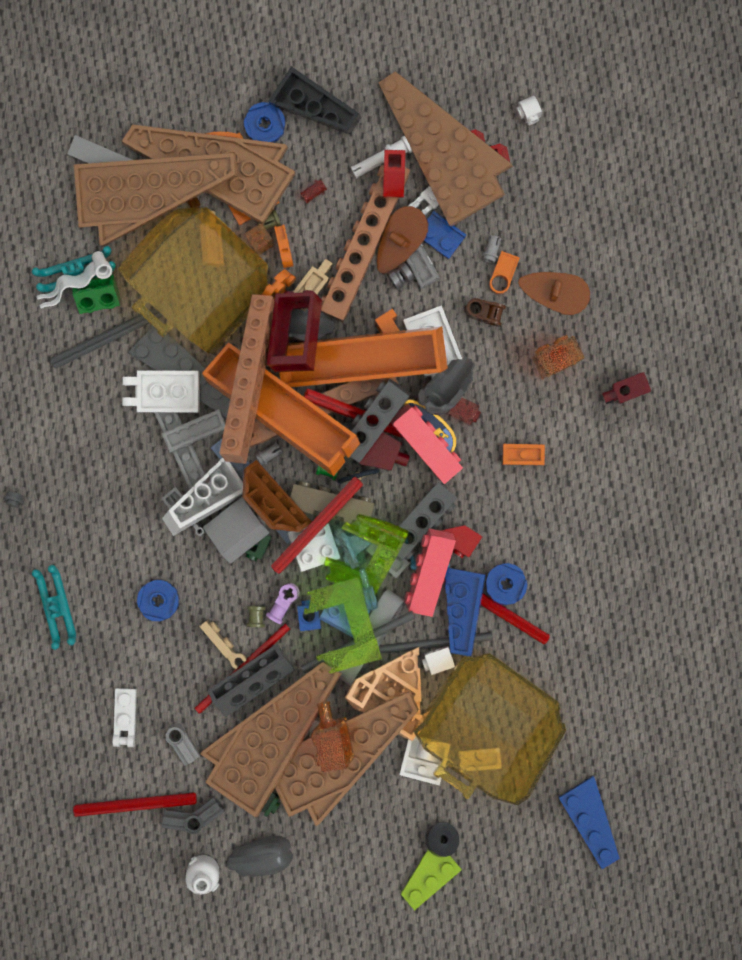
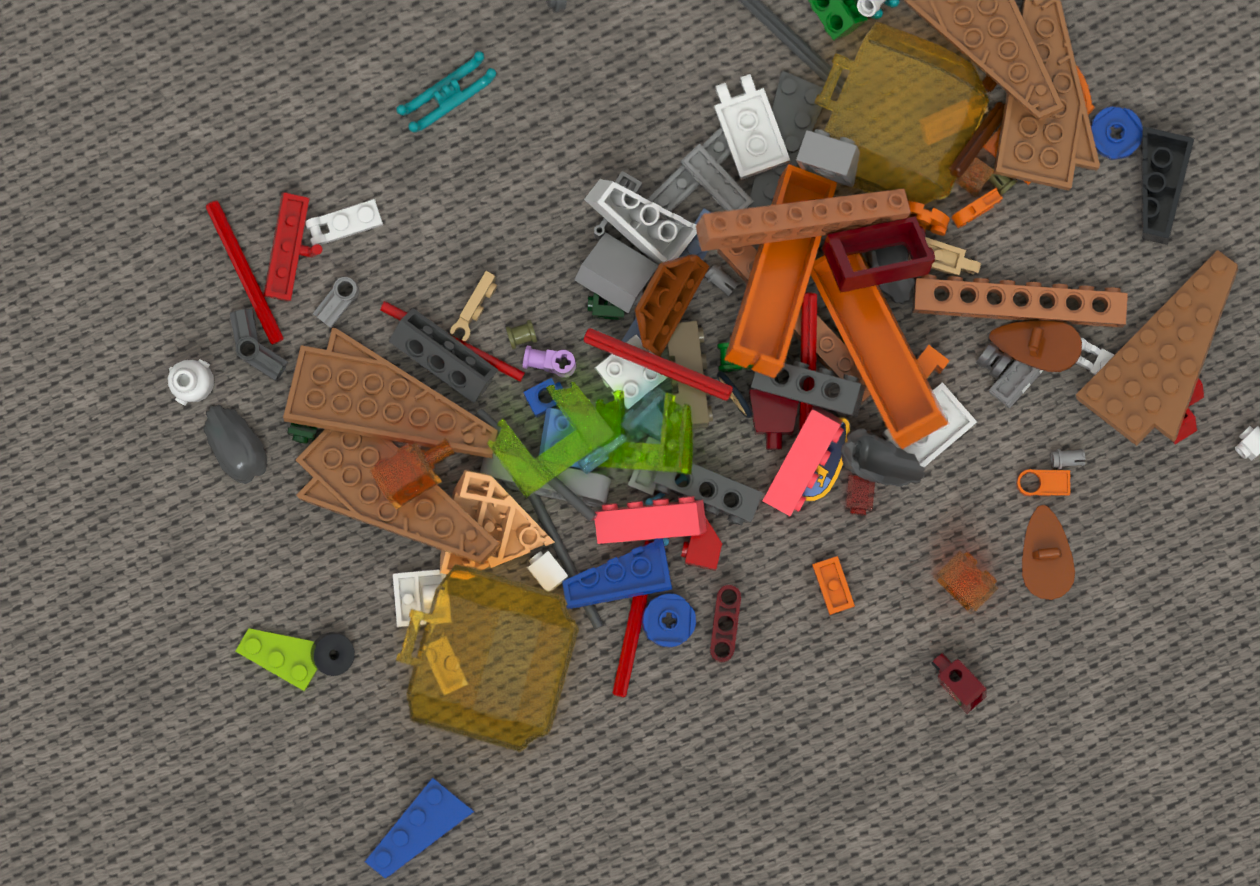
camera: 65 degrees right, 5 degrees down
(127, 766) = (288, 247): none -> red plate
(148, 606) = (508, 201): blue plate -> none
(208, 341) = (829, 157): none -> light grey slope
(234, 226) = (977, 140): none -> reddish brown axle
(313, 191) = (1057, 220): clear red pin -> none
(378, 159) = (1138, 294): white pin -> none
(394, 173) = (1112, 305): red slope -> none
(442, 236) = (1060, 392): blue plate -> none
(486, 312) = (989, 479): reddish brown piece -> none
(531, 550) = (730, 611): none -> dark red beam

